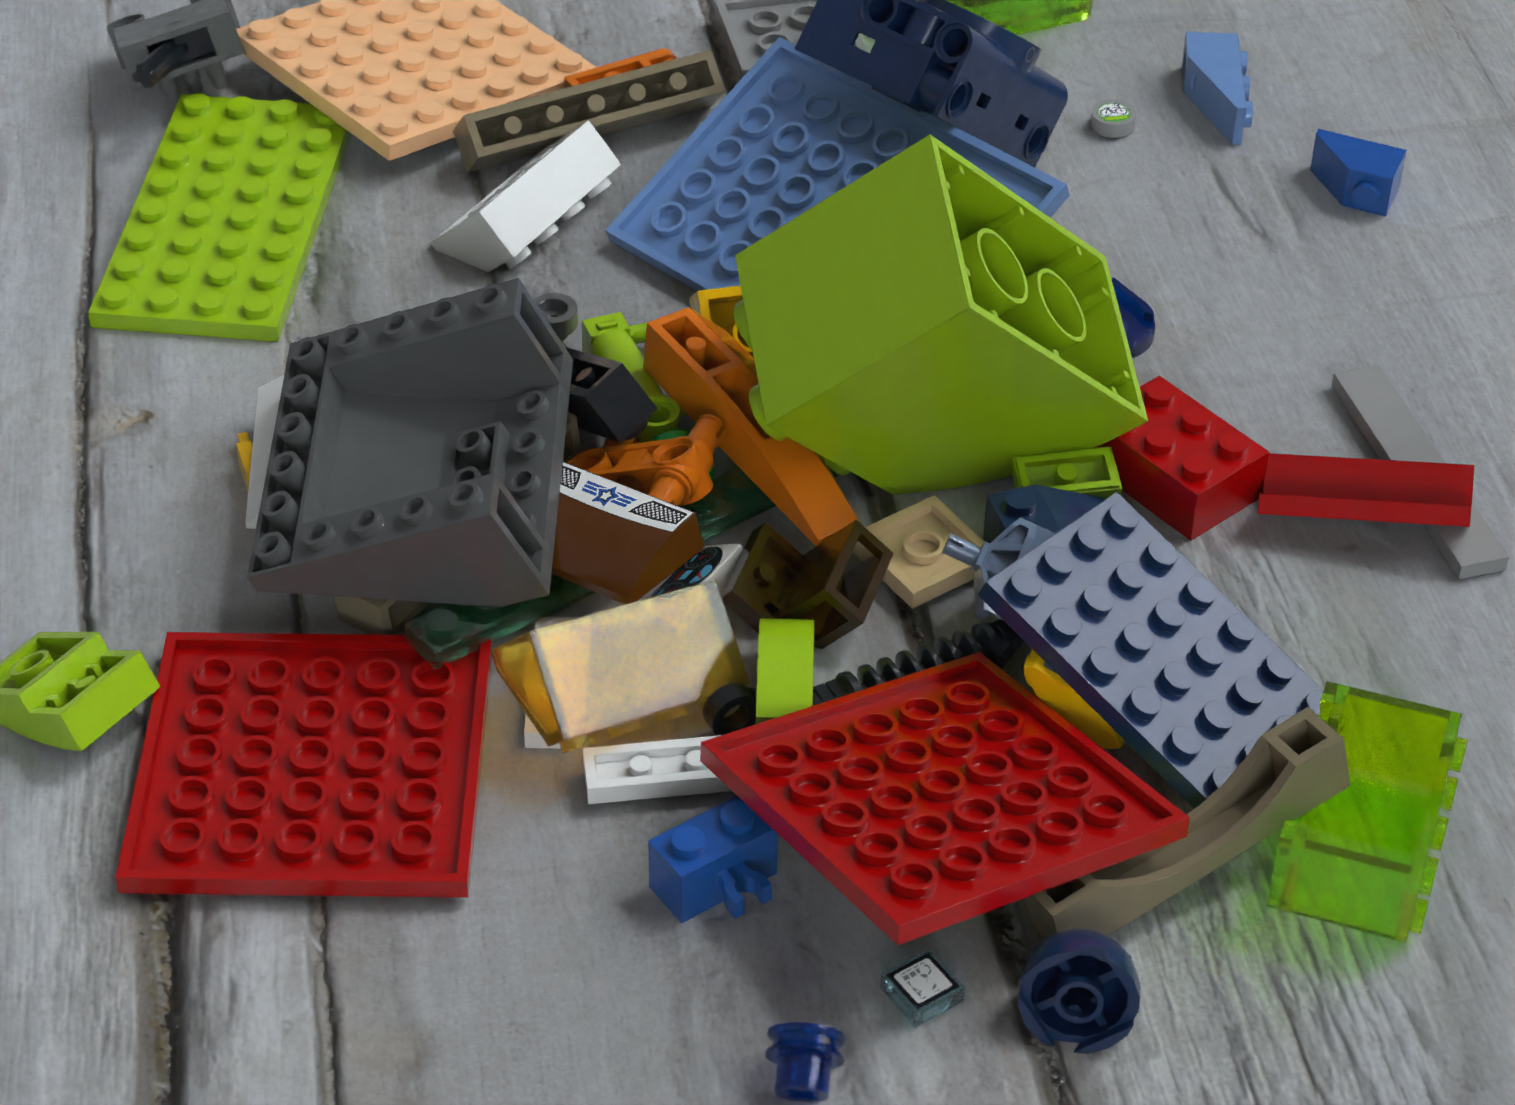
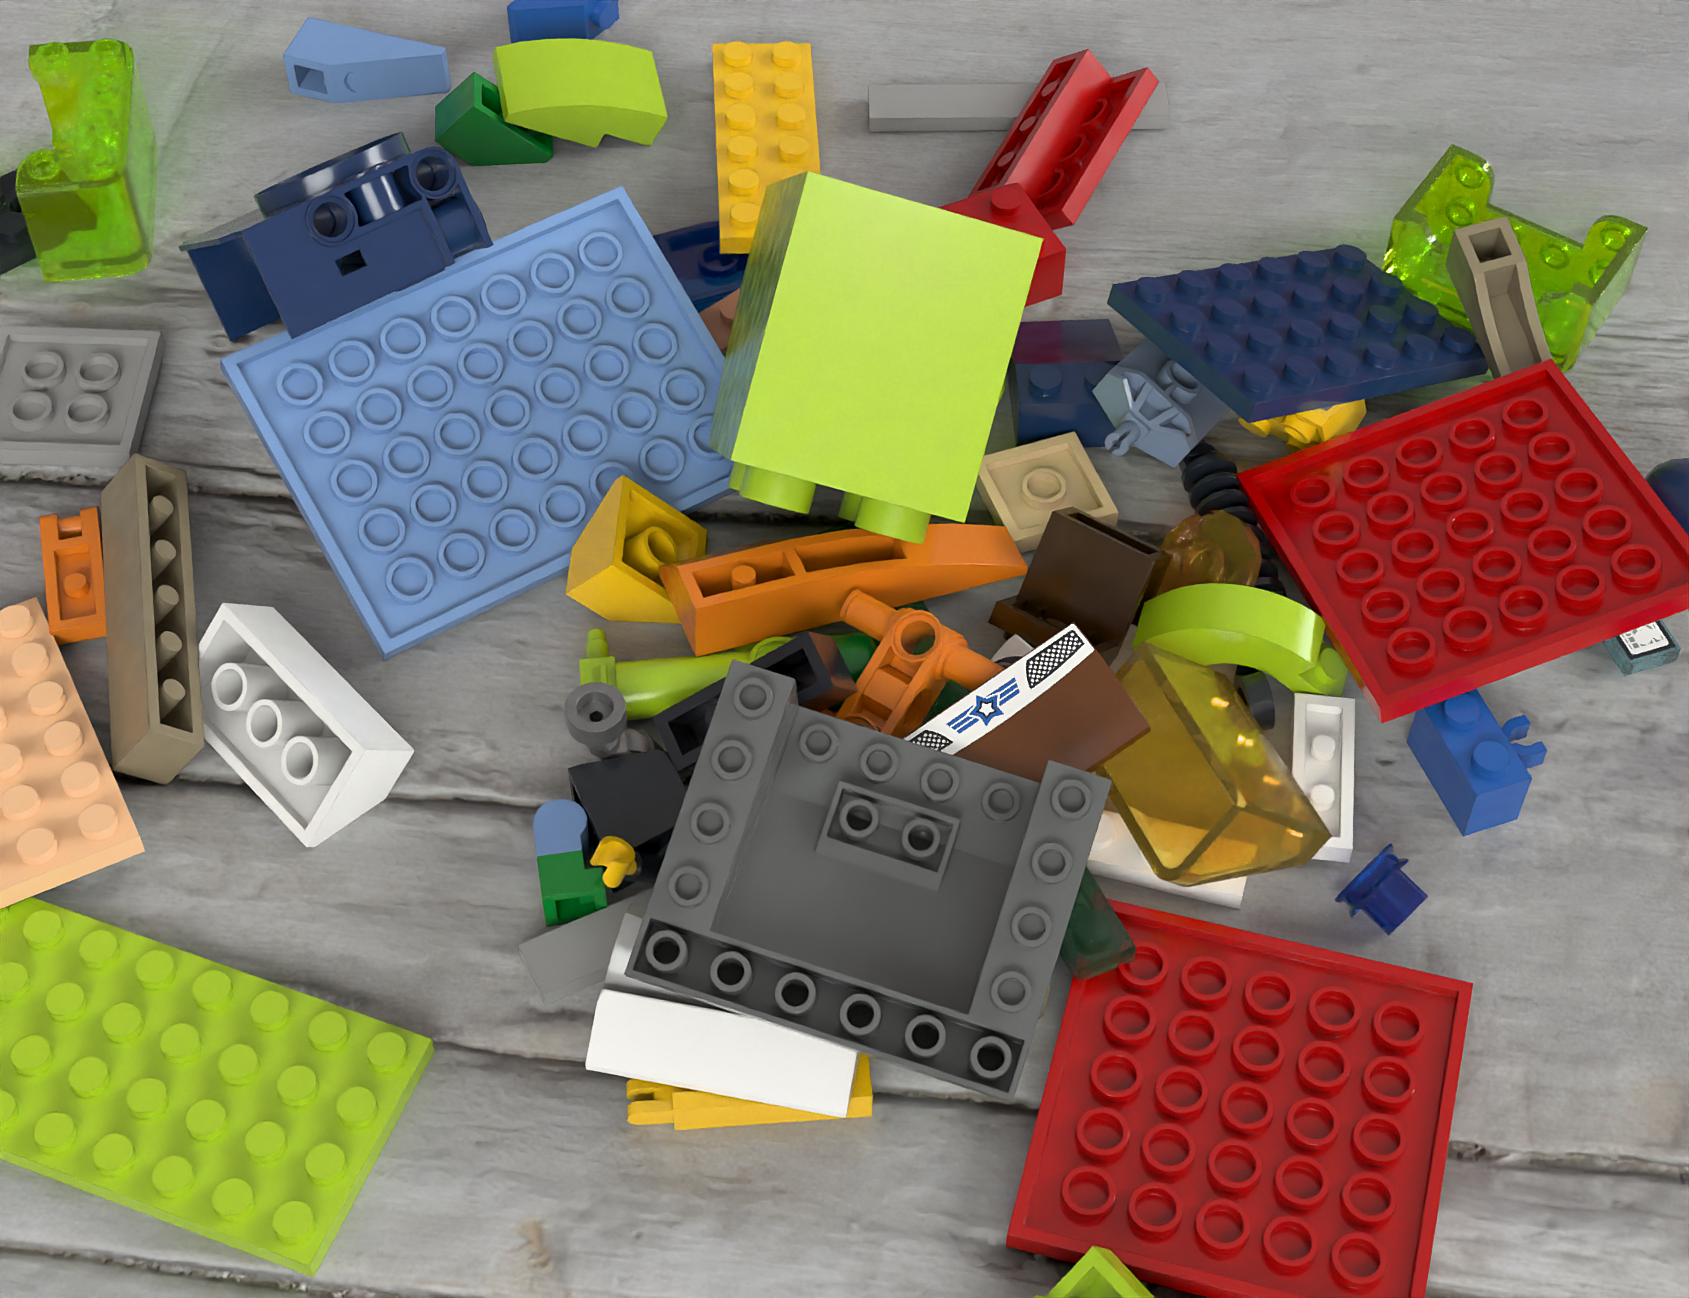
camera: 75 degrees left, 10 degrees up
(550, 813) = (1383, 891): none -> clear blue piece
(866, 651) = (1211, 551): none -> clear orange tile
(1185, 163) = (473, 127): none -> green slope
(1248, 193) = (580, 89): none -> lime slope
(1260, 318) = (761, 129): none -> yellow plate

